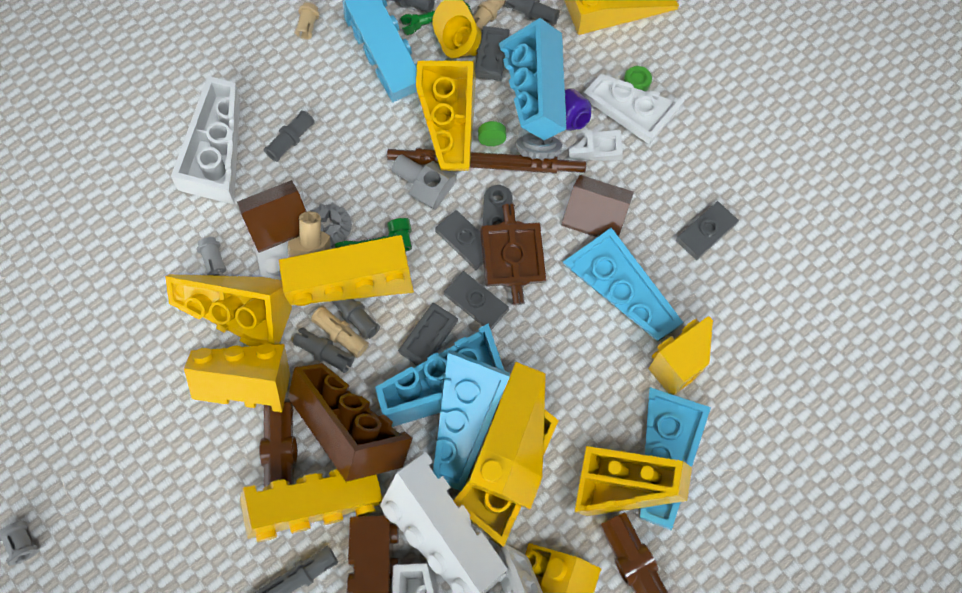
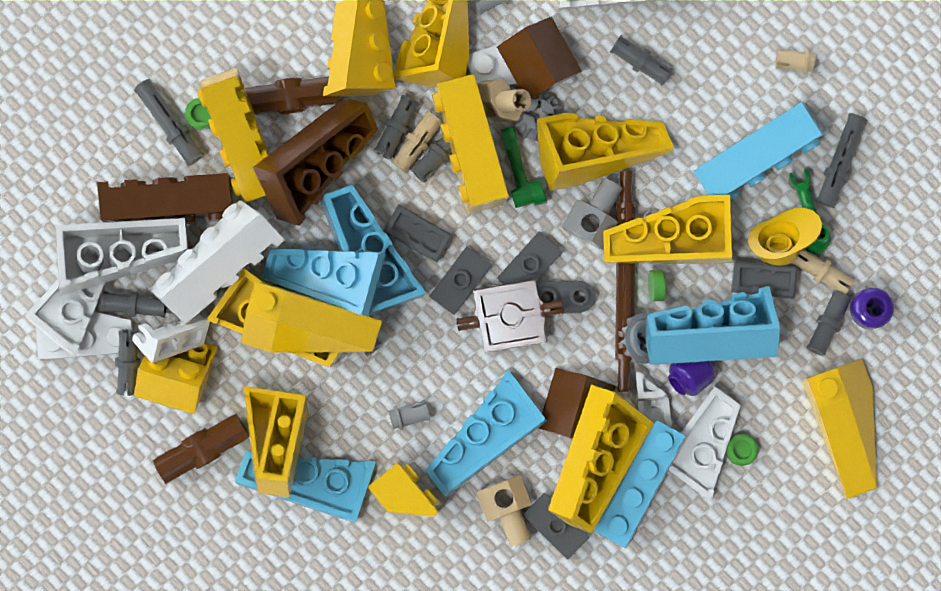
camera: 85 degrees right, 15 degrees up
(285, 547) = (197, 115): none -> bright green tile
(363, 180) = (586, 149): none -> yellow wedge
(603, 353) = (408, 415): none -> light grey pin
(651, 181) = (598, 458): none -> yellow wedge
(679, 166) = (640, 484): none -> medium azure wing
(696, 265) = (509, 516): none -> tan piece

